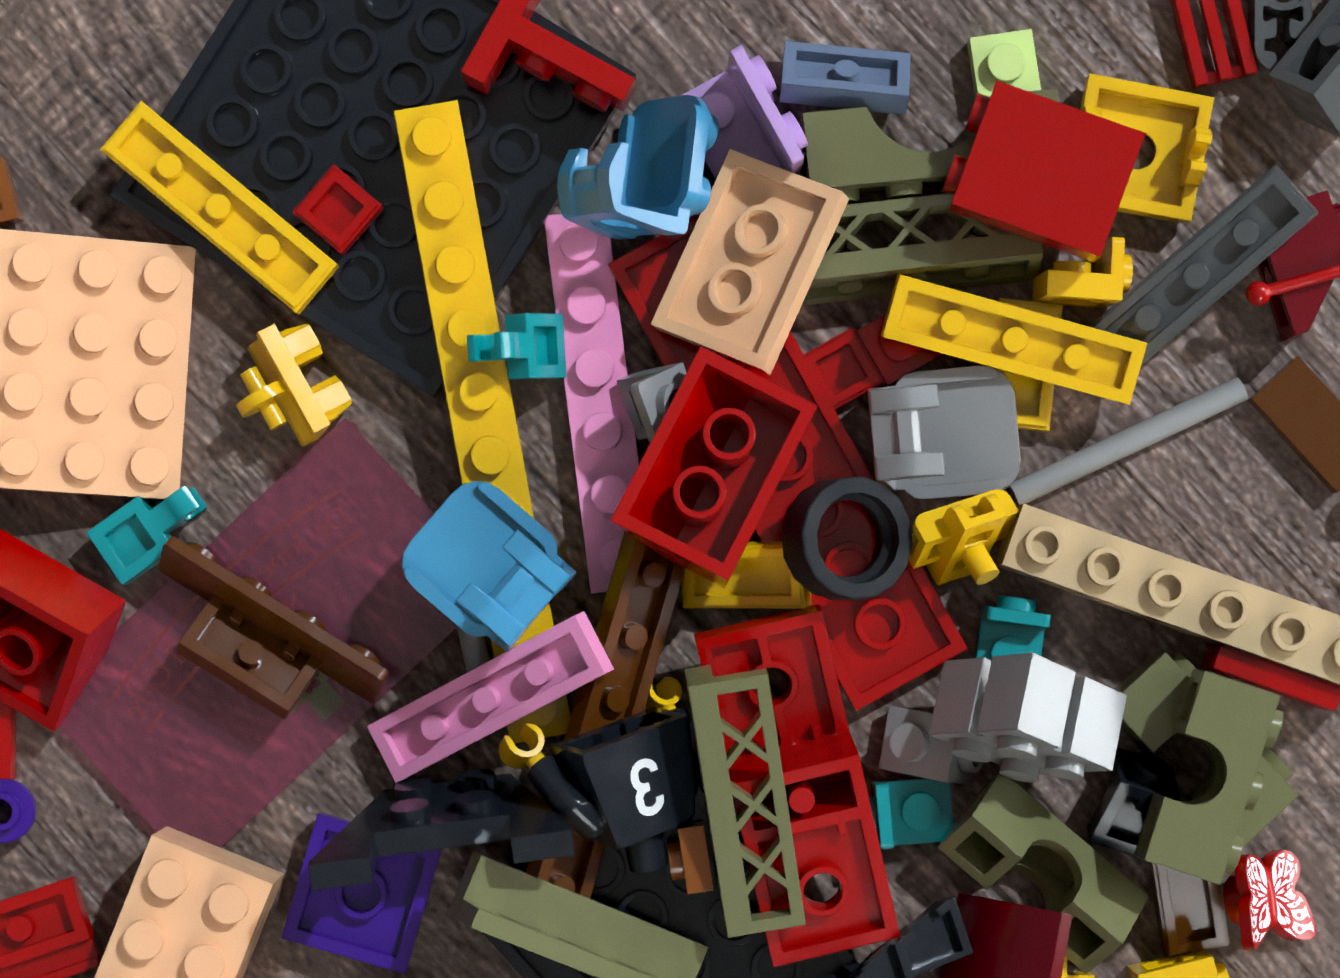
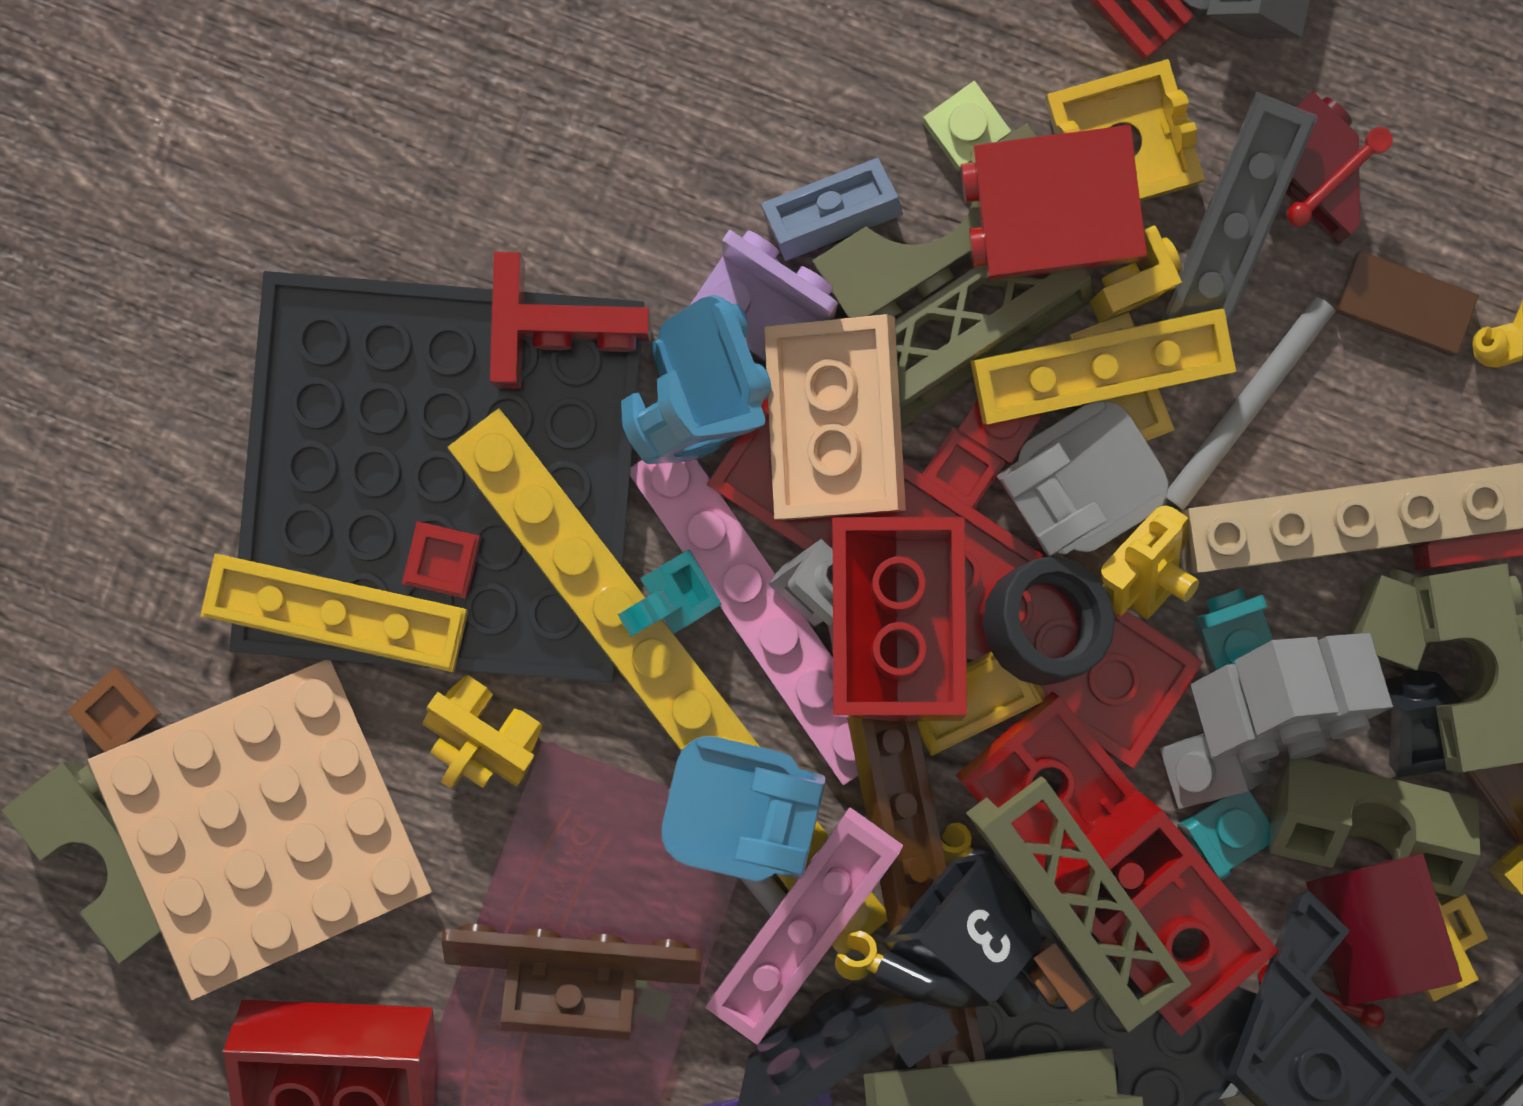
camera: 25 degrees left, 0 degrees up
(136, 533) = (411, 941): teal plate -> none

